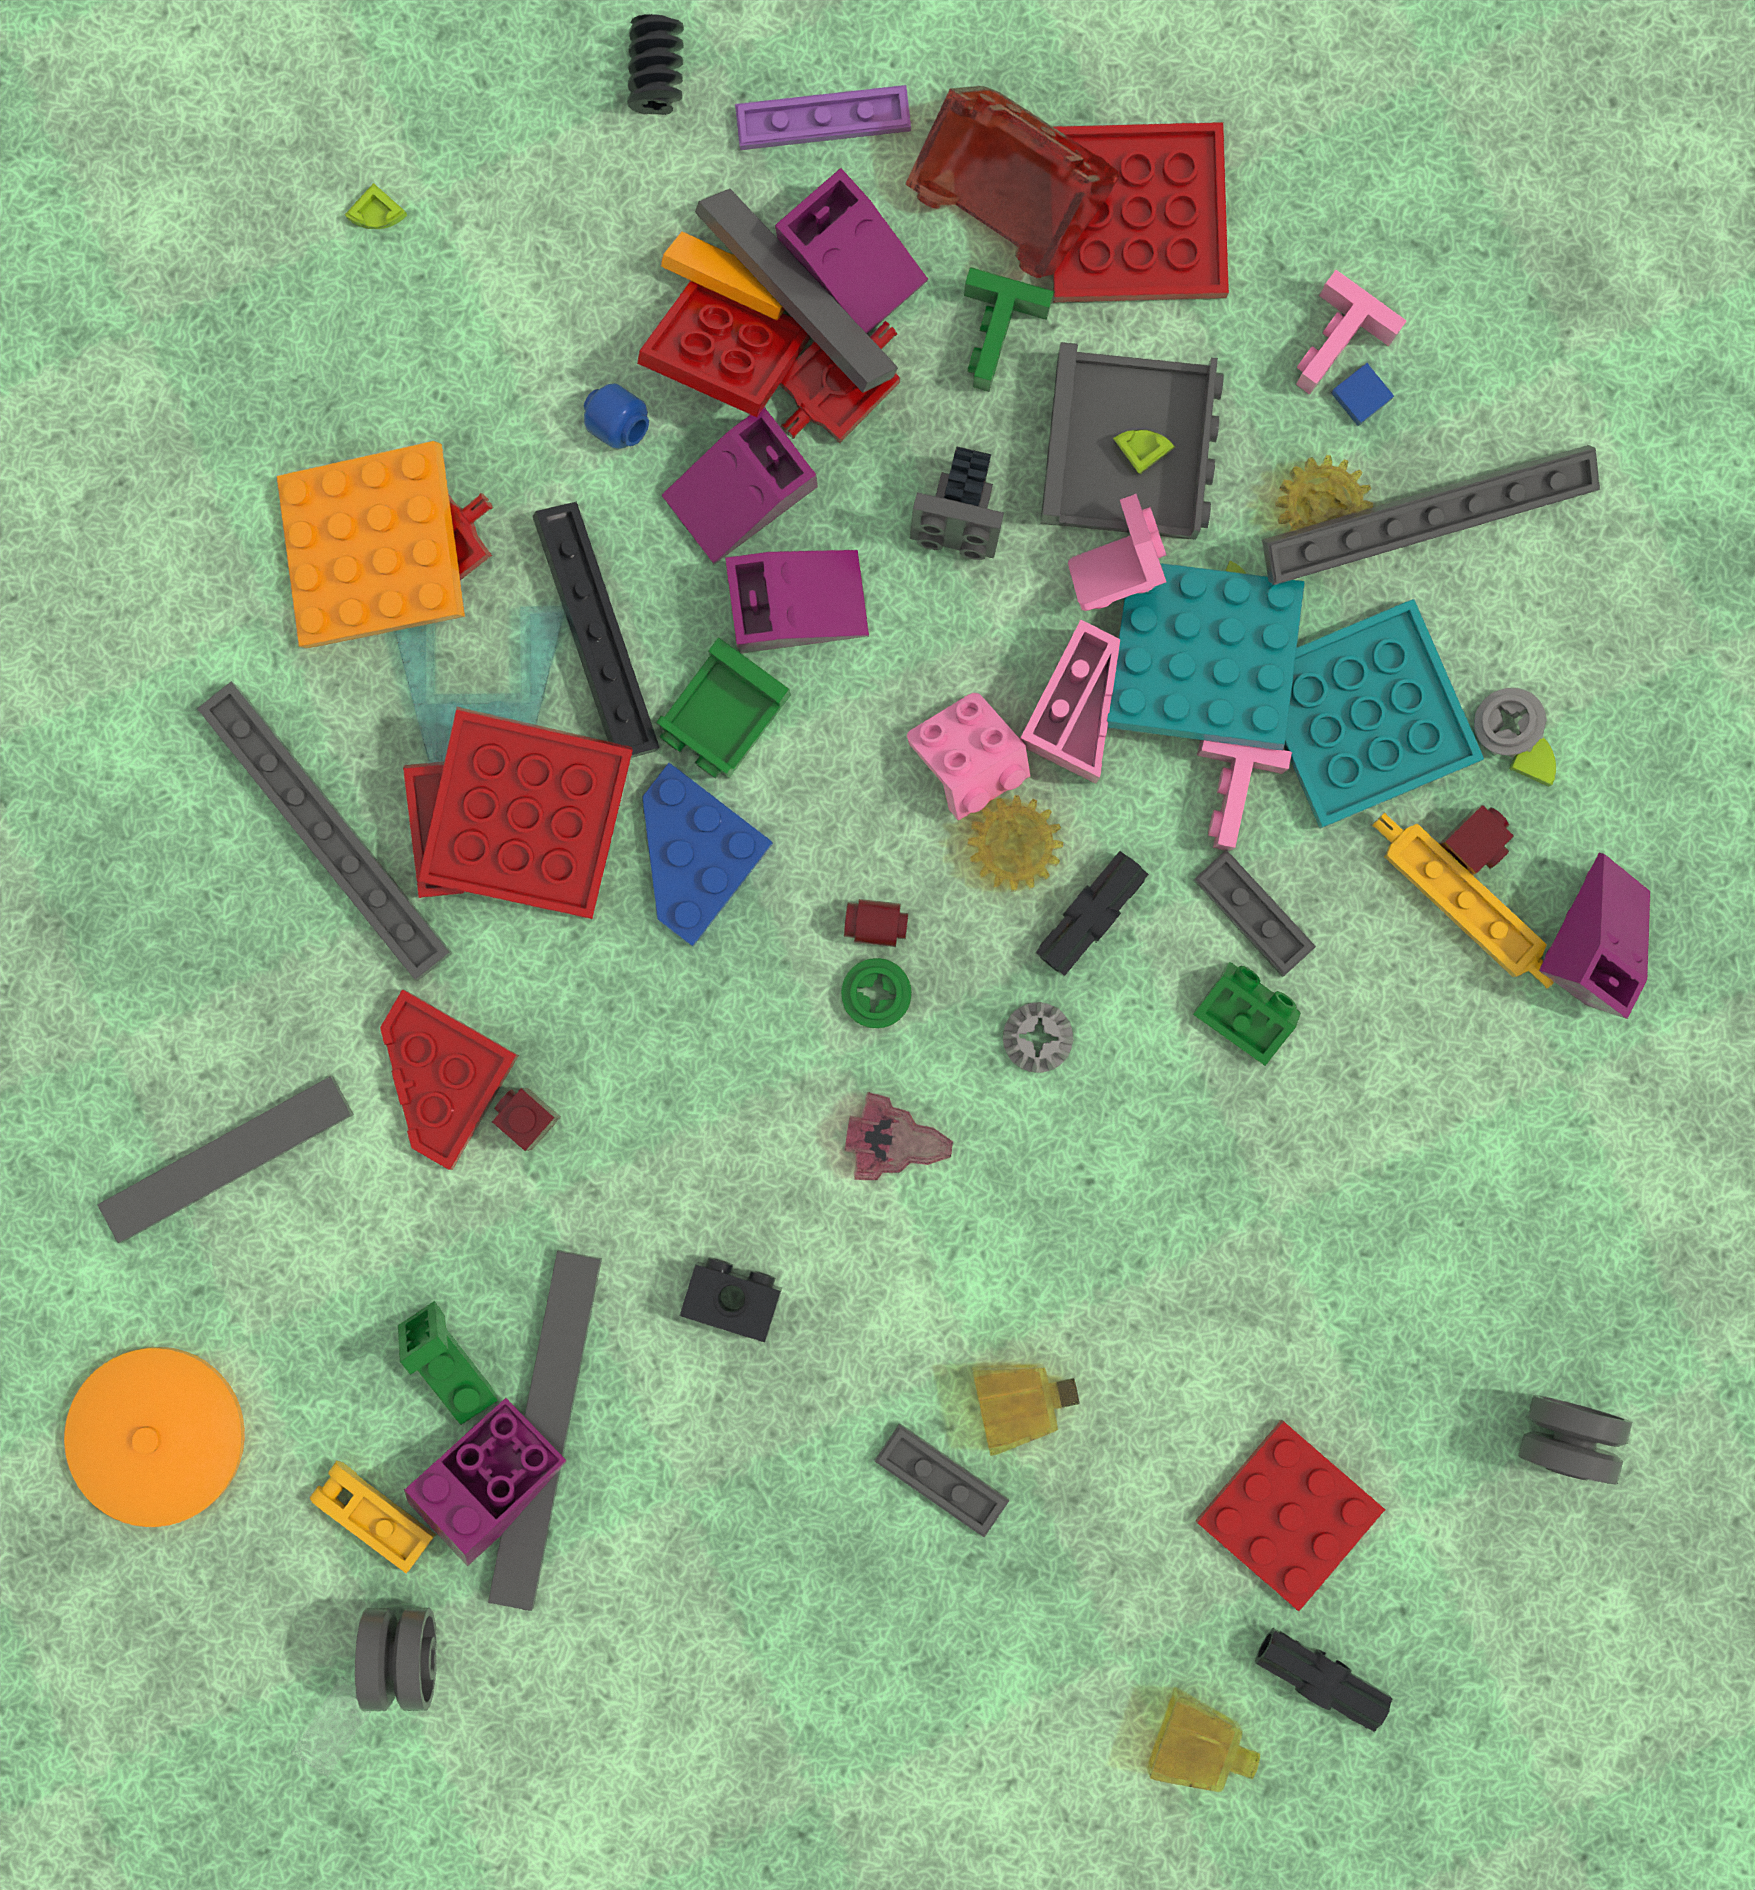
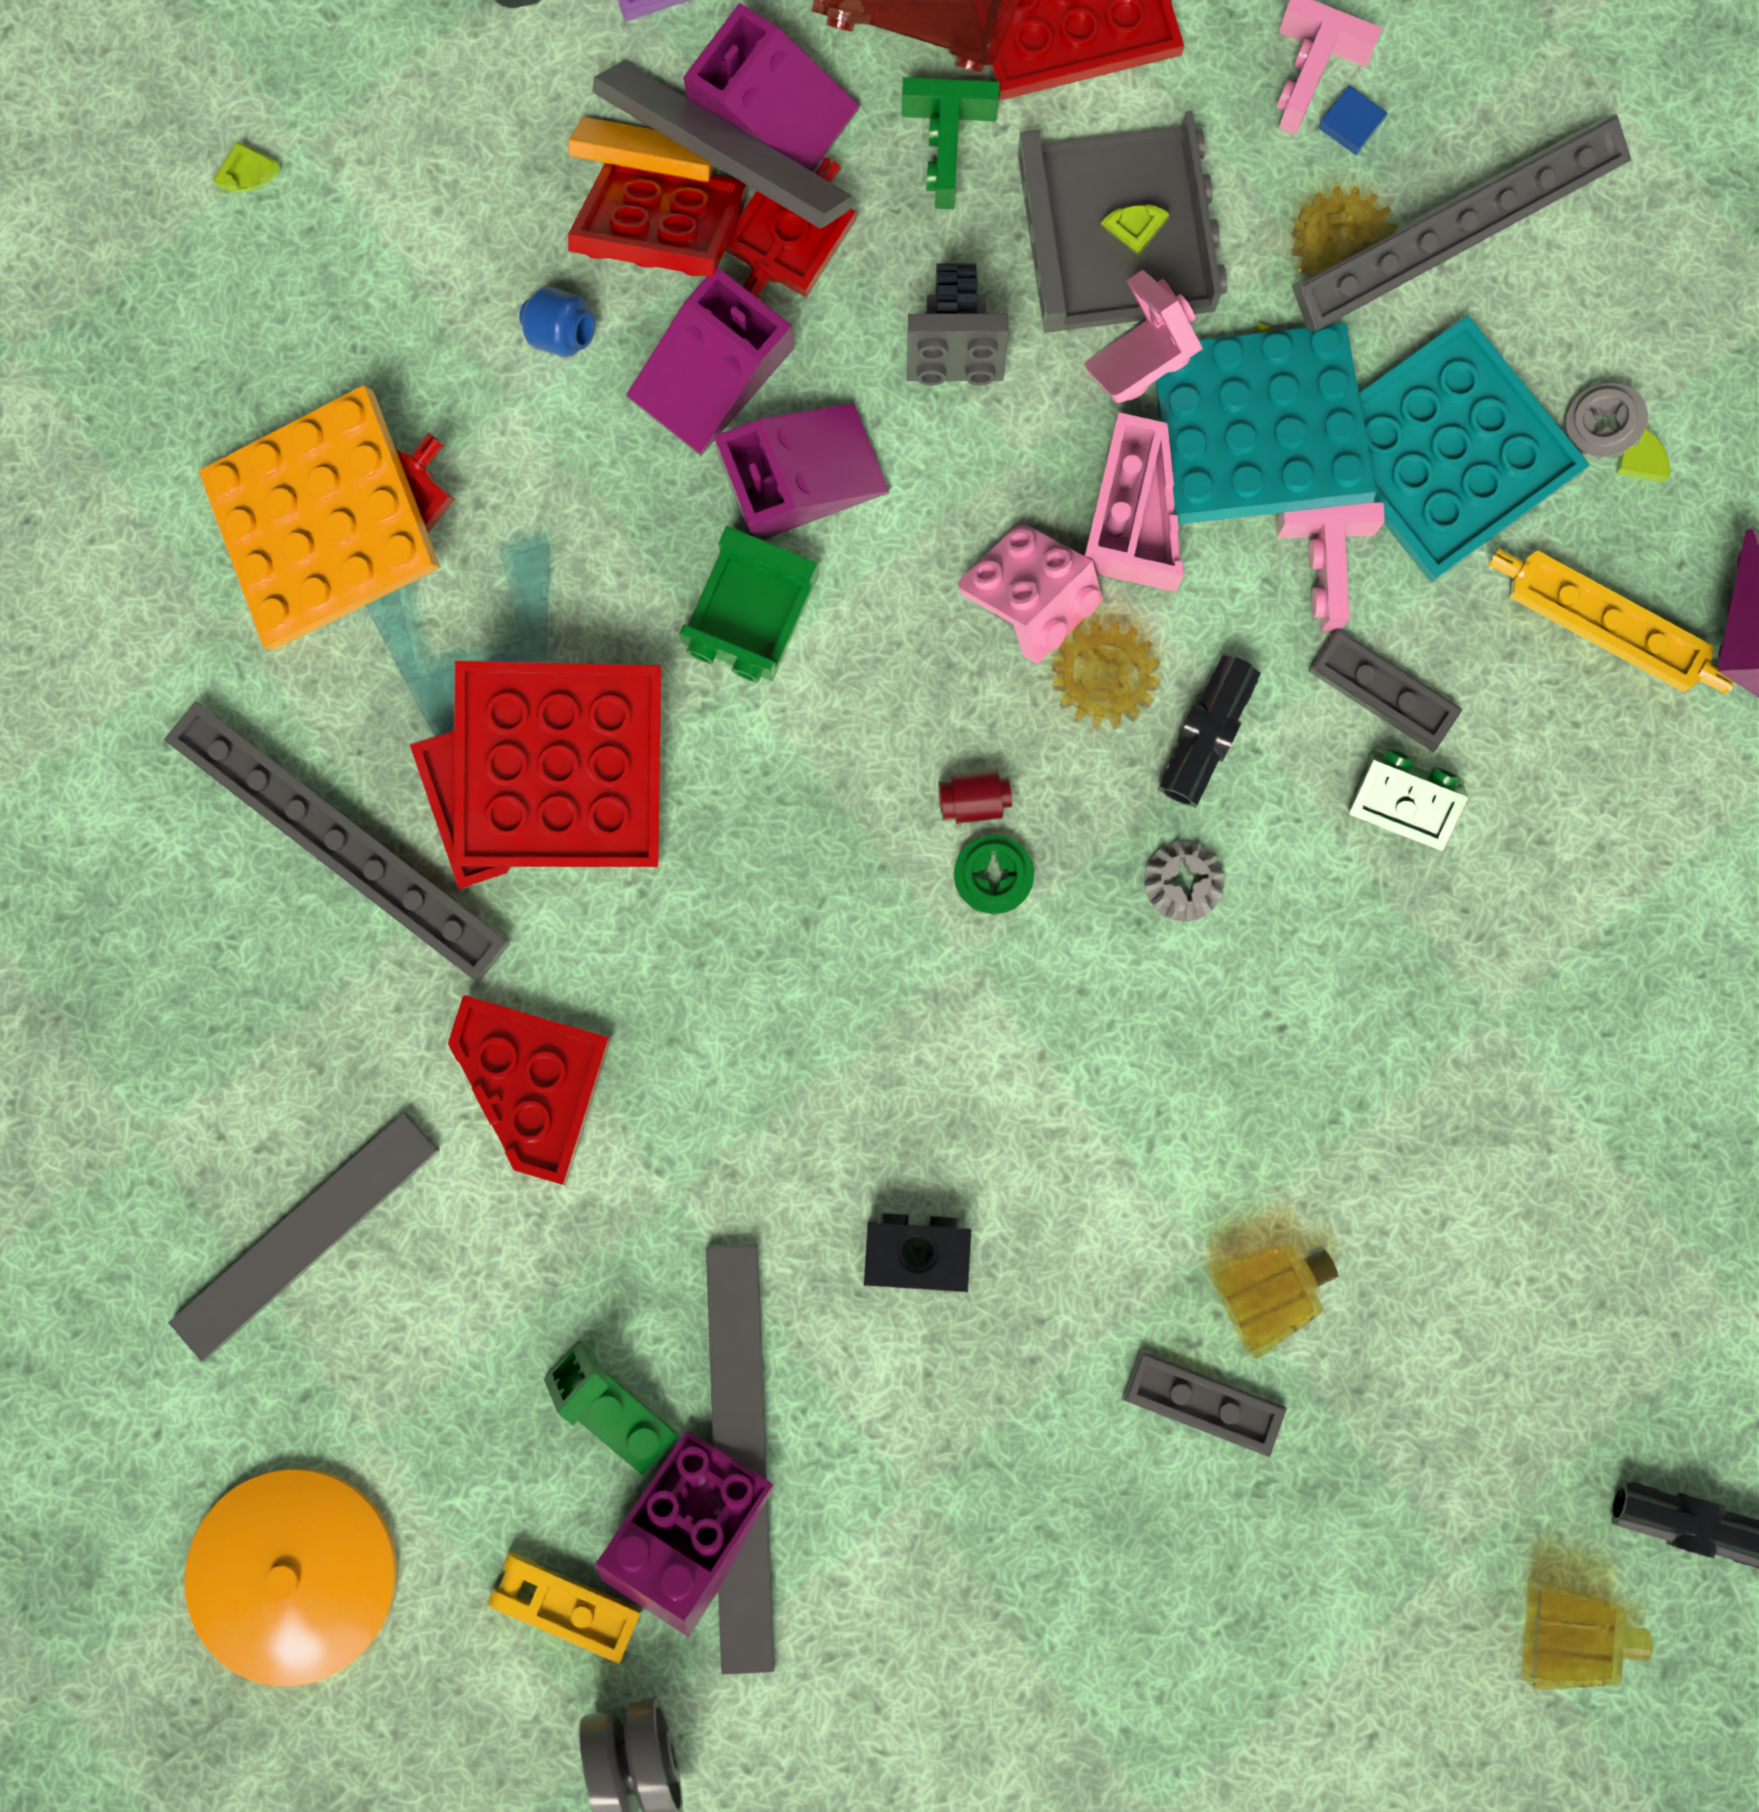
camera: 20 degrees left, 5 degrees down
(524, 1117) = (634, 1105): dark red brick -> none
(595, 628) = (586, 551): black plate -> none
(695, 852) = (756, 769): blue plate -> none
(890, 1140) = (1050, 1032): clear pink rock -> none
(1290, 1515) = (1606, 1346): red plate -> none
(1479, 839) = (1609, 550): dark red brick -> none

